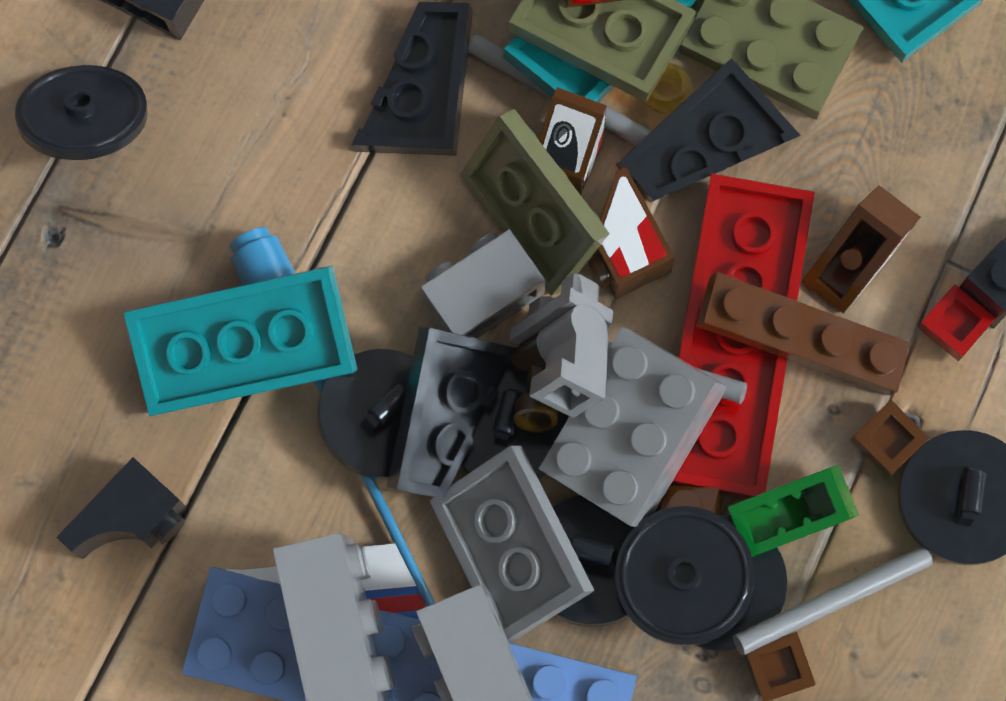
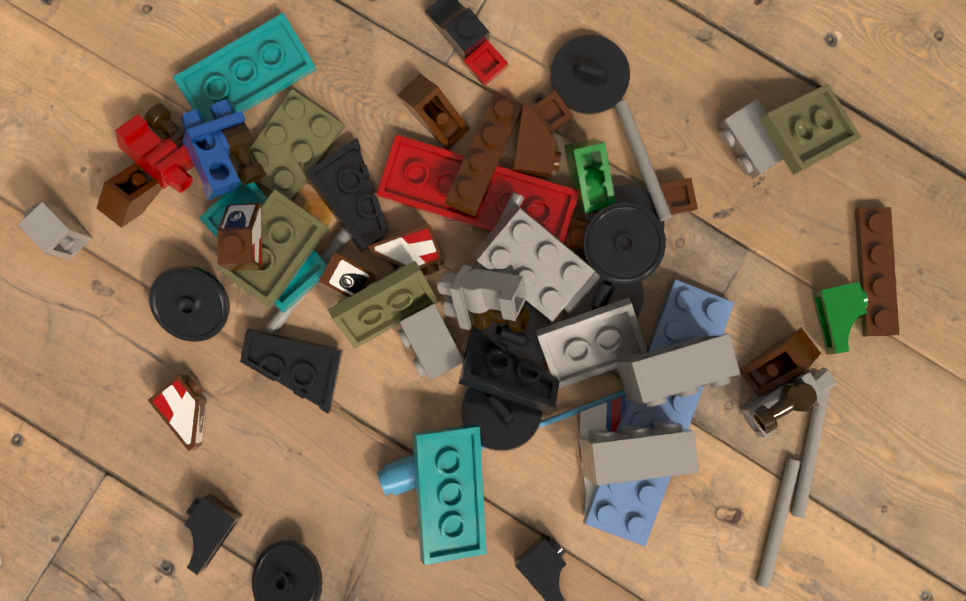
camera: 85 degrees left, 10 degrees up
(825, 416) = (535, 147): none -> reddish brown slope

